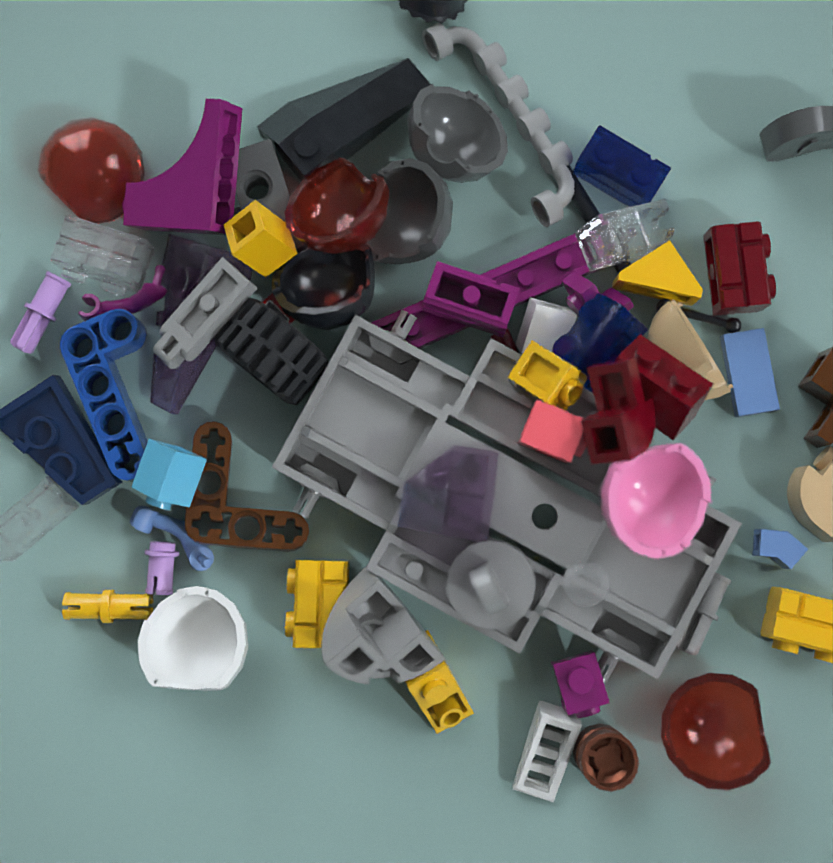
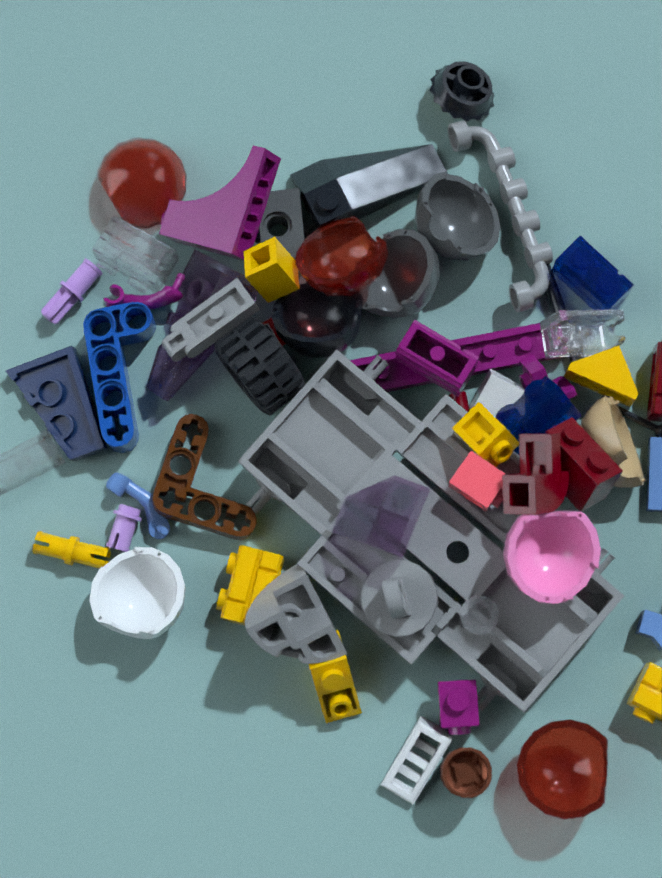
camera: 20 degrees right, 5 degrees down
(168, 474) = (149, 449): medium azure brick -> none
(703, 616) = (578, 670): light grey axle -> none

